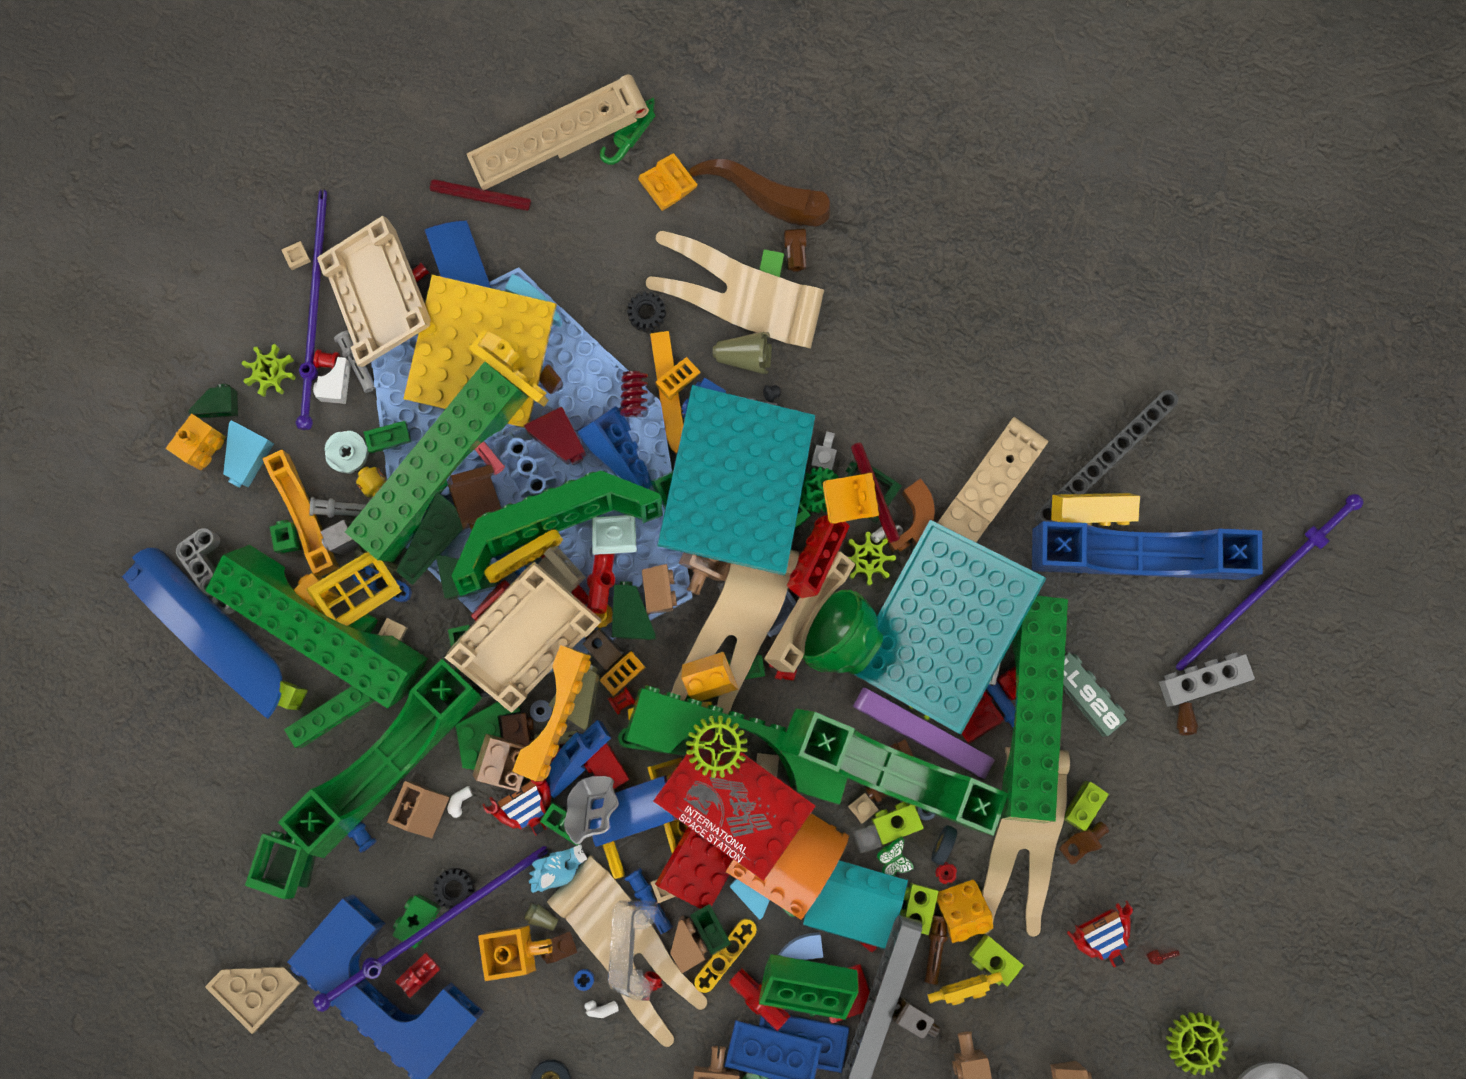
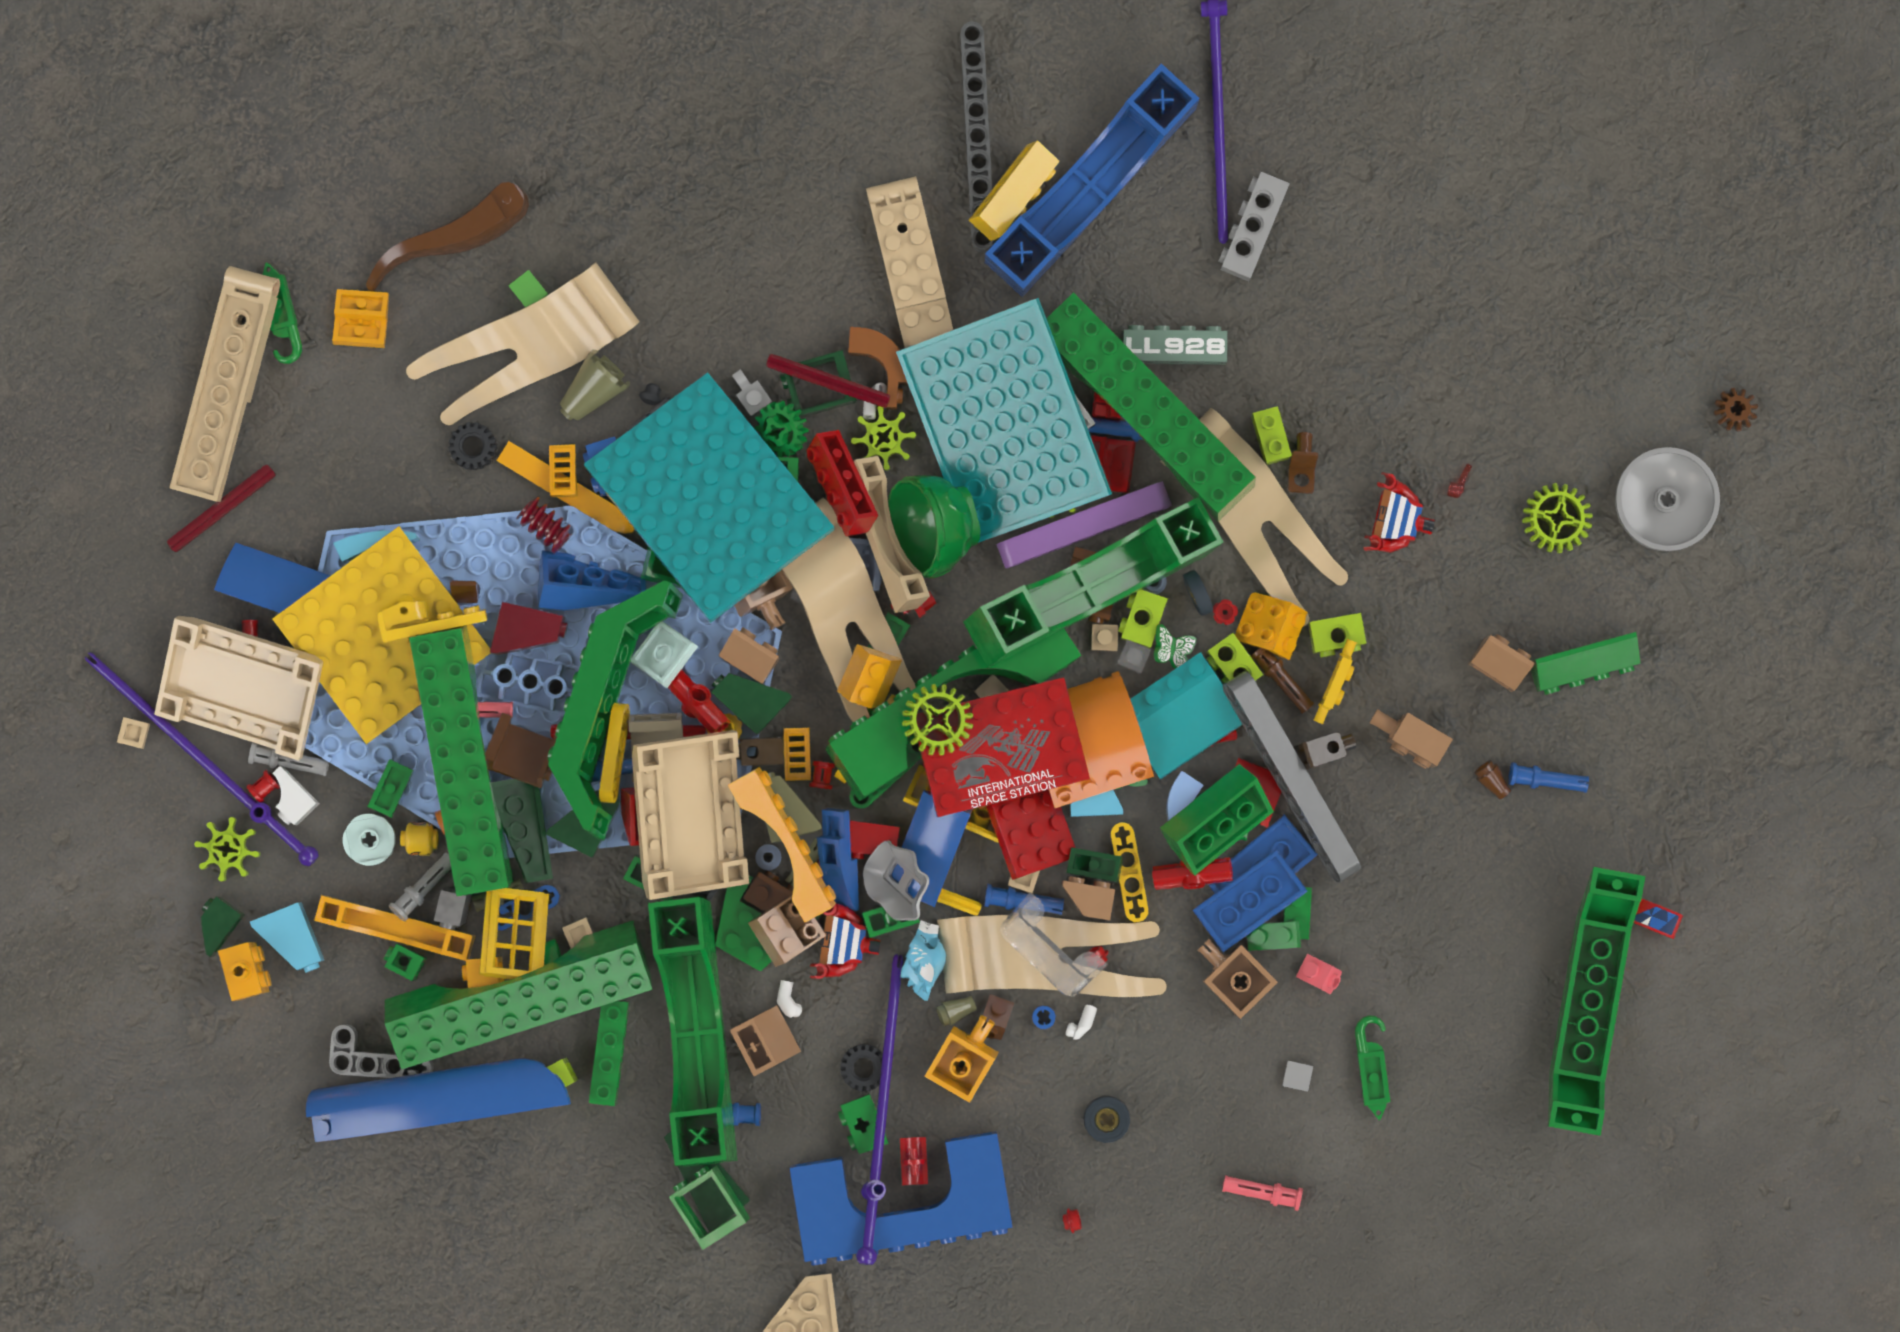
camera: 50 degrees left, 5 degrees up
(795, 244) = (527, 250): reddish brown piece -> none
(850, 498) = (815, 408): light orange bracket -> none
(1186, 720) = (1275, 276): reddish brown cone -> none

